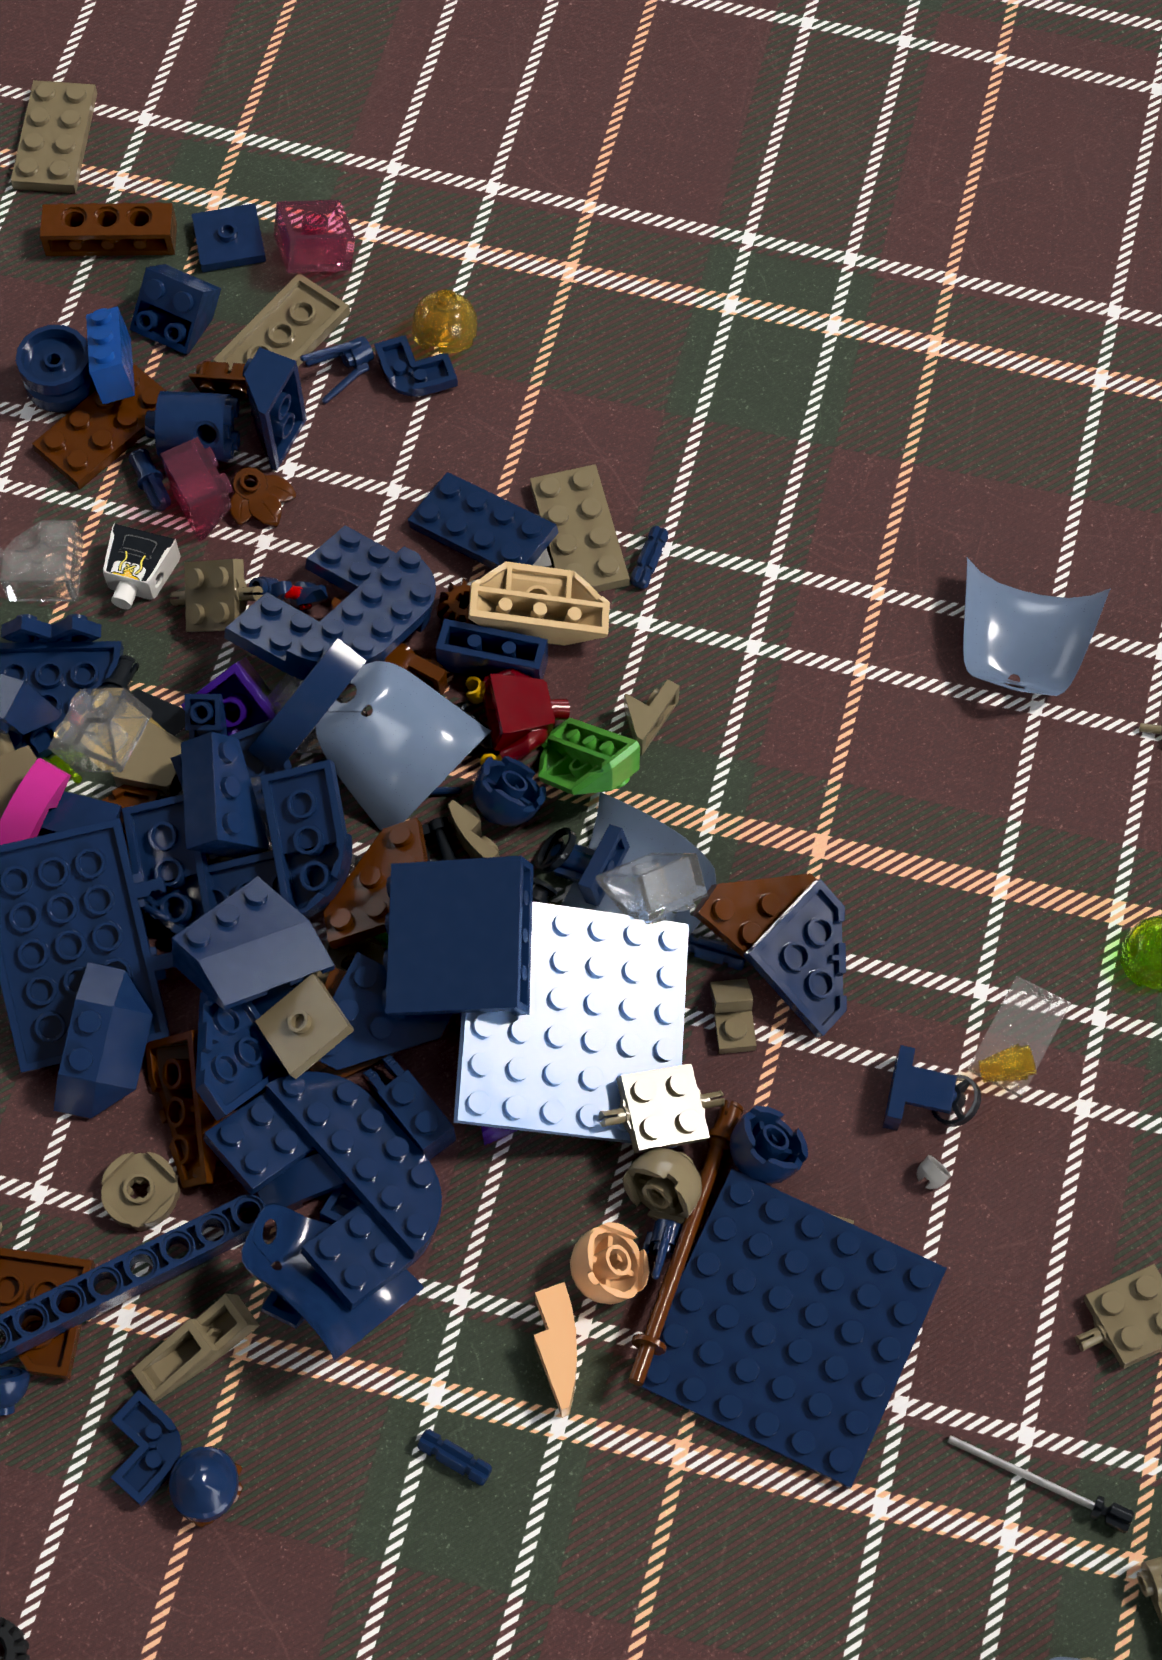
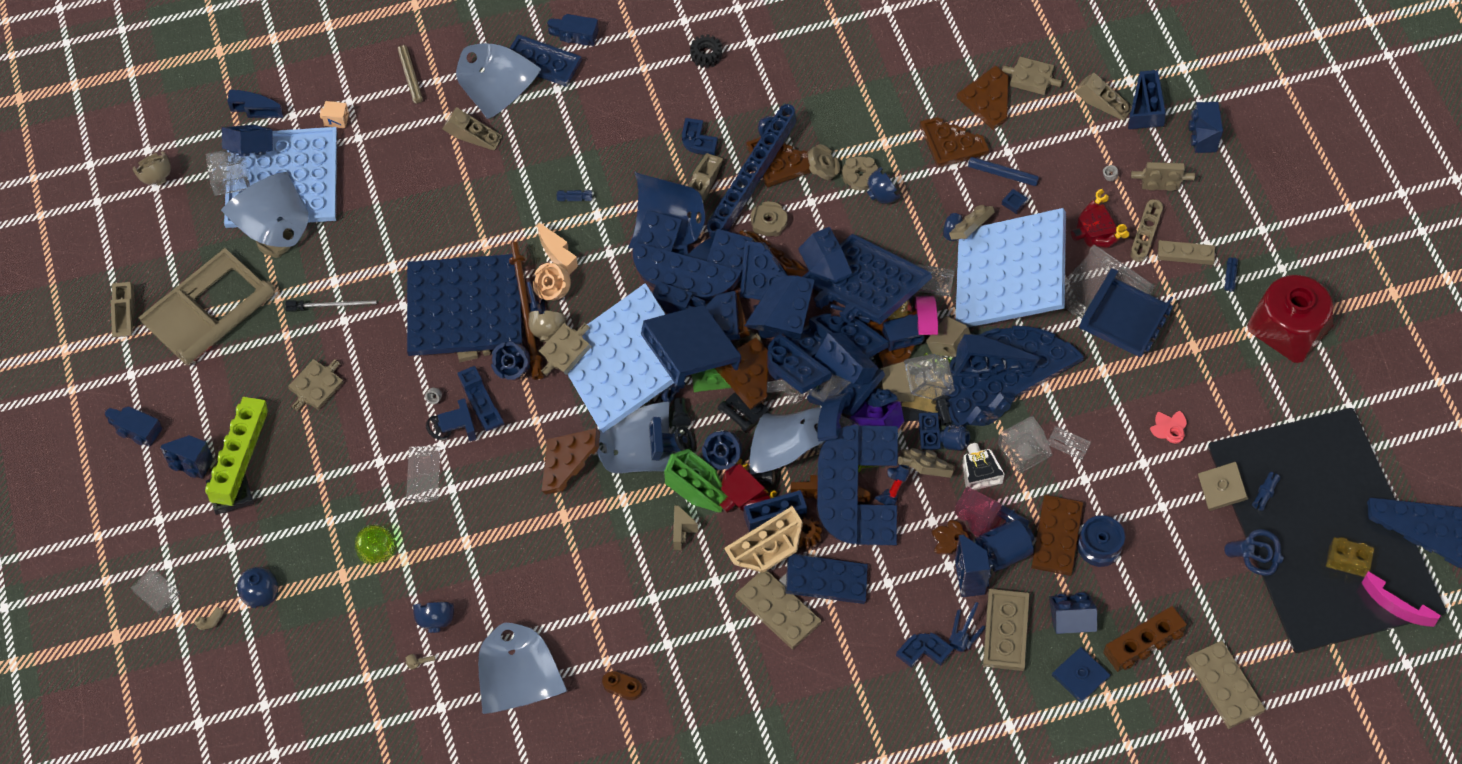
camera: 150 degrees right, 5 degrees down
(110, 355) = (1078, 557): blue brick -> none
(137, 623) = (955, 437): none -> dark blue head
(166, 667) = (929, 431): none -> dark blue slope
(204, 1484) = (665, 136): dark blue hair -> none
(214, 378) = (1004, 584): reddish brown hinge -> none
(304, 1026) = (740, 296): dark tan plate -> none
(314, 236) = (1031, 689): clear pink slope -> none
(445, 322) = (918, 686): clear yellow cylinder -> none
(468, 830) = (720, 422): dark tan slope -> none
(649, 557) = (733, 612): dark blue axle -> none
(655, 885) = (625, 430): clear slope -> none
(733, 1016) = (561, 416): dark tan slope -> none
(806, 958) = (538, 447): dark blue plate -> none
(856, 1111) = (479, 399): none -> dark blue slope
(873, 541) = (621, 685): none -> reddish brown plate
(1008, 1065) = (420, 450): clear yellow cone -> none
(1115, 778) = (433, 615): none -> dark blue cylinder

